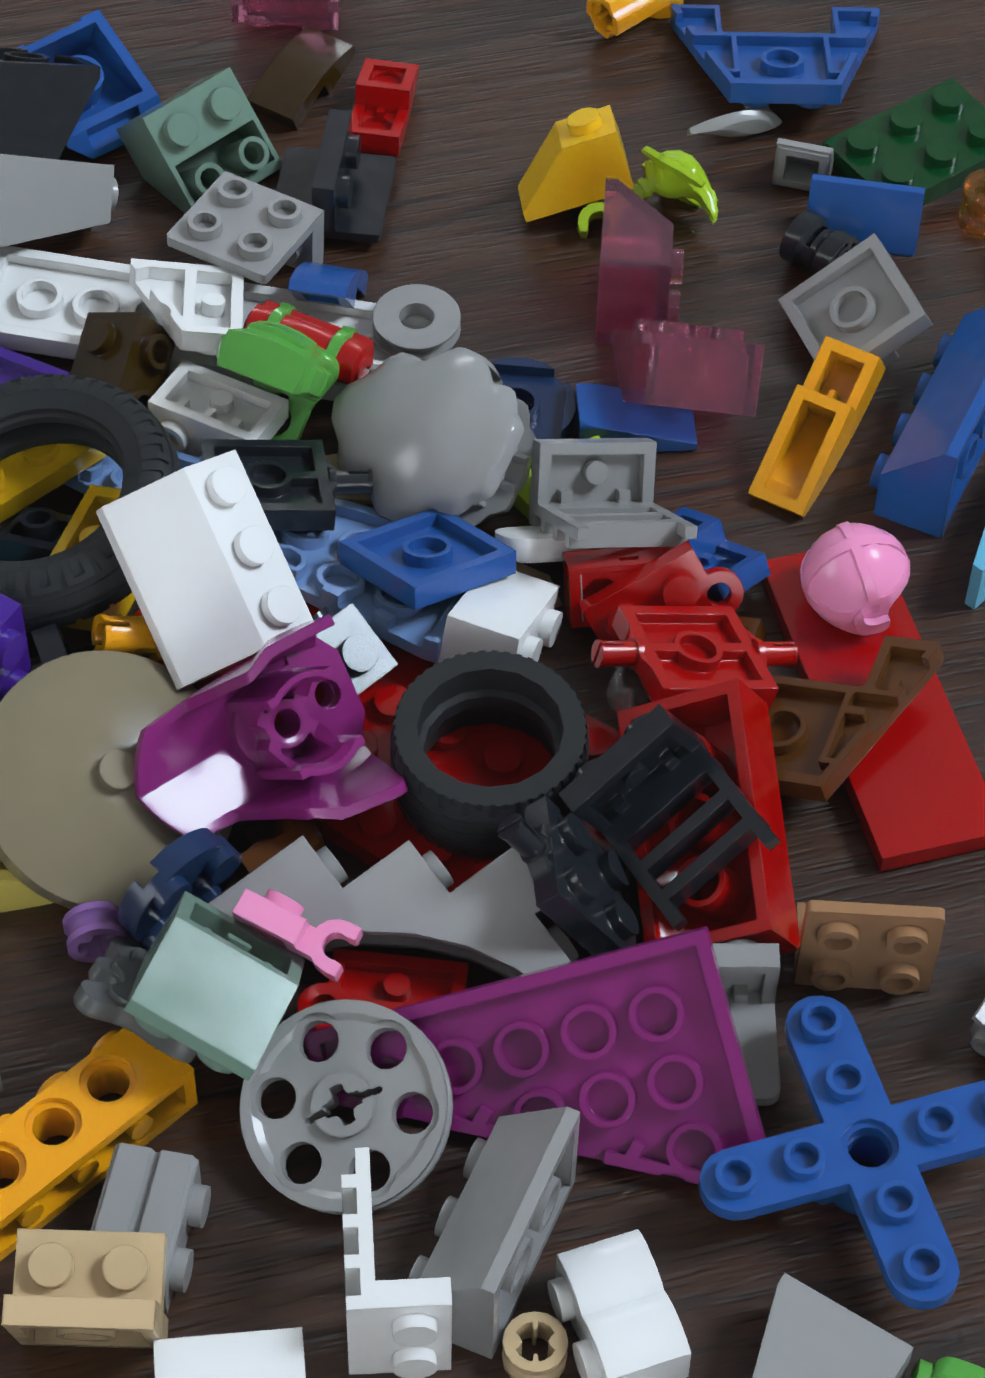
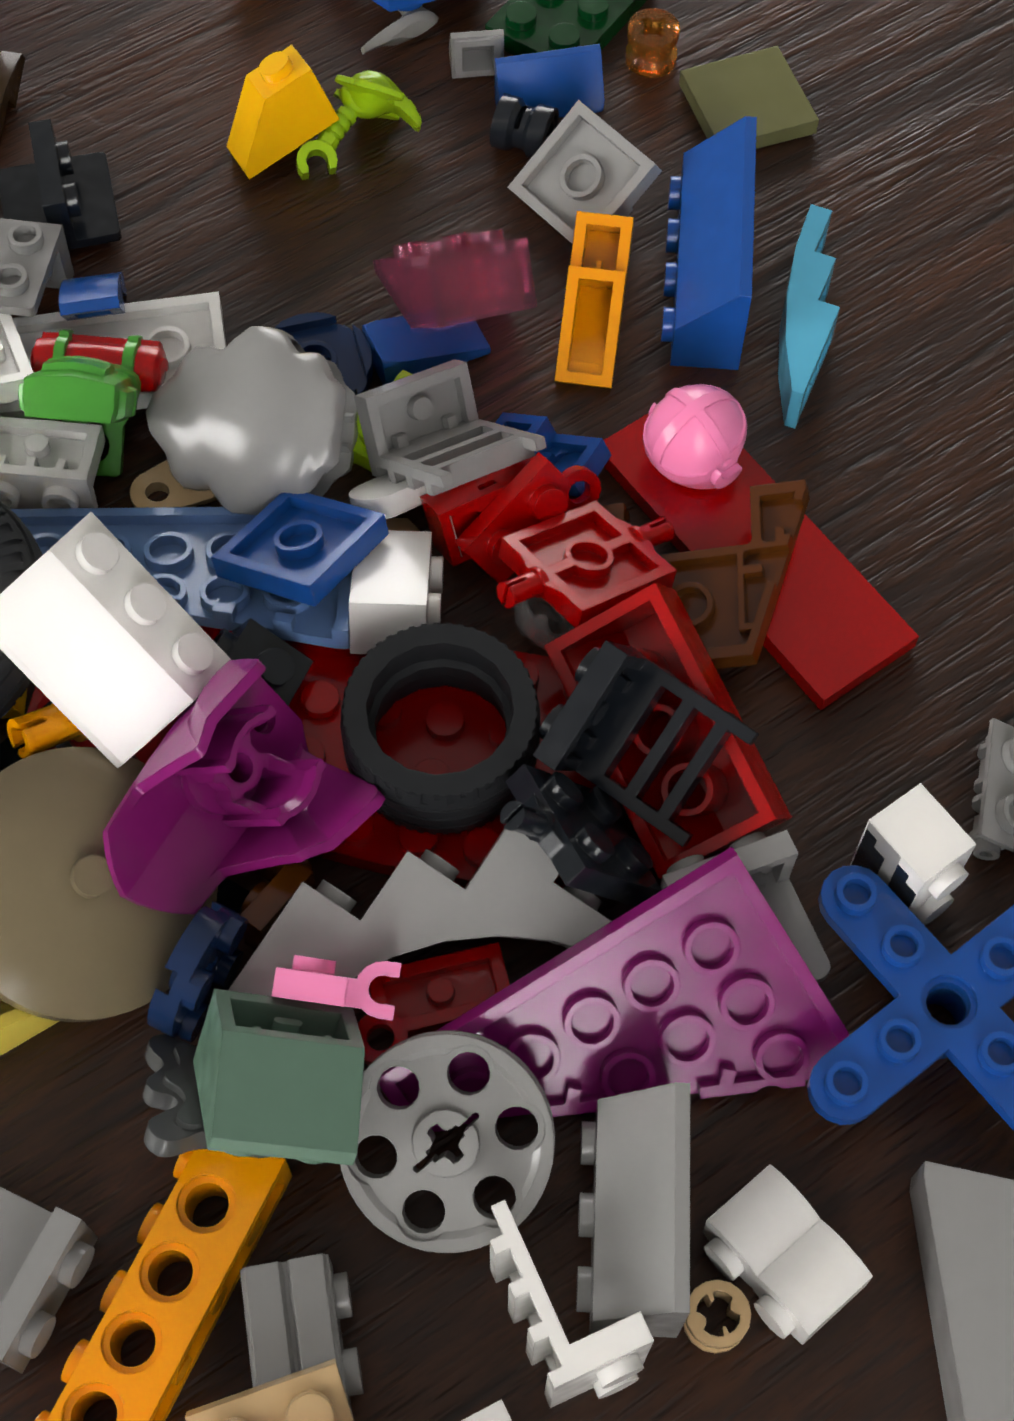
camera: 20 degrees left, 10 degrees up
(91, 929) = (123, 1037): medium lavender bush -> none
(292, 480) = (133, 503): black plate -> none
(383, 105) = (72, 102): red slope -> none
(413, 301) = (194, 331): light grey piece -> none
(635, 263) = (372, 192): clear pink slope -> none
(867, 945) = (846, 788): medium nougat bracket -> none
(897, 1009) = (916, 852): none -> white brick

